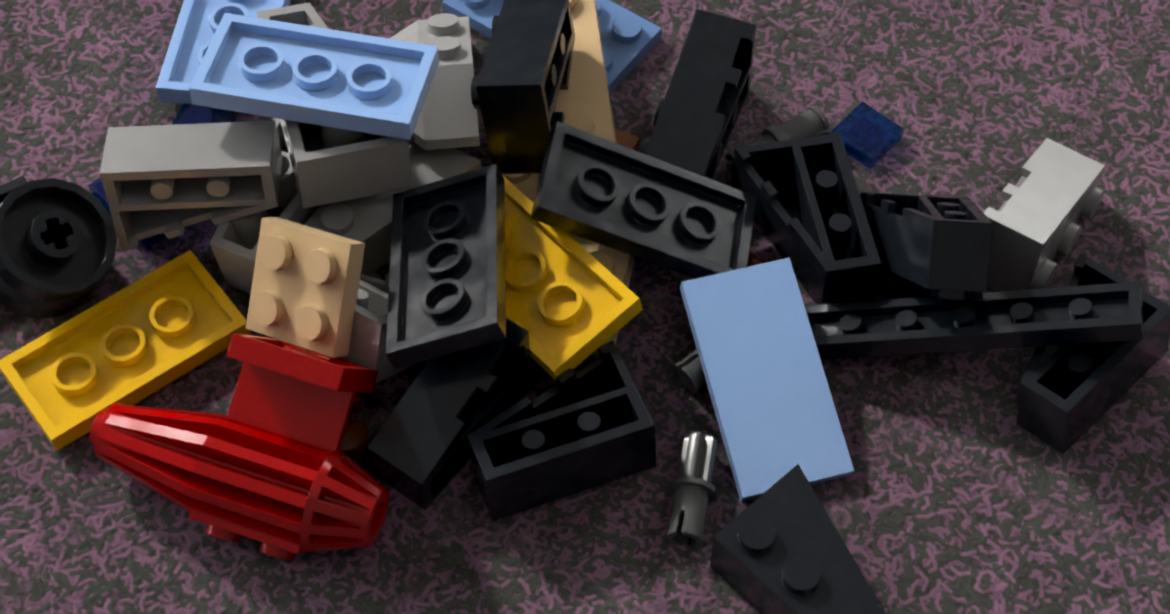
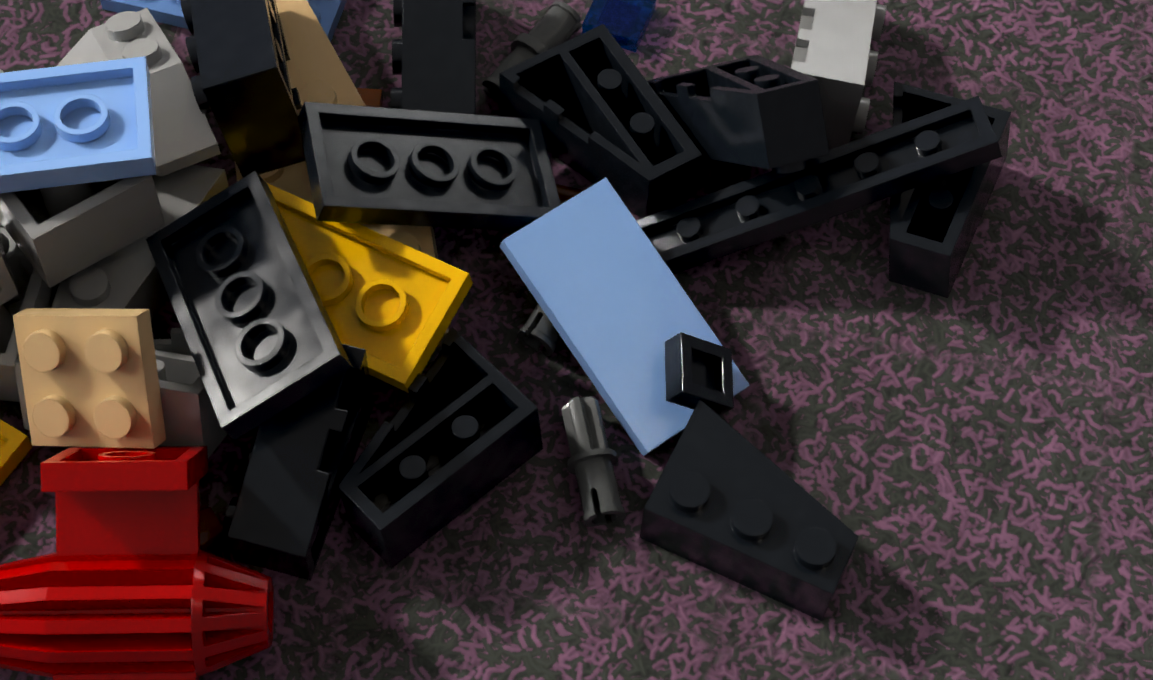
camera: 25 degrees left, 5 degrees up
(807, 441) = (698, 372): none -> black plate

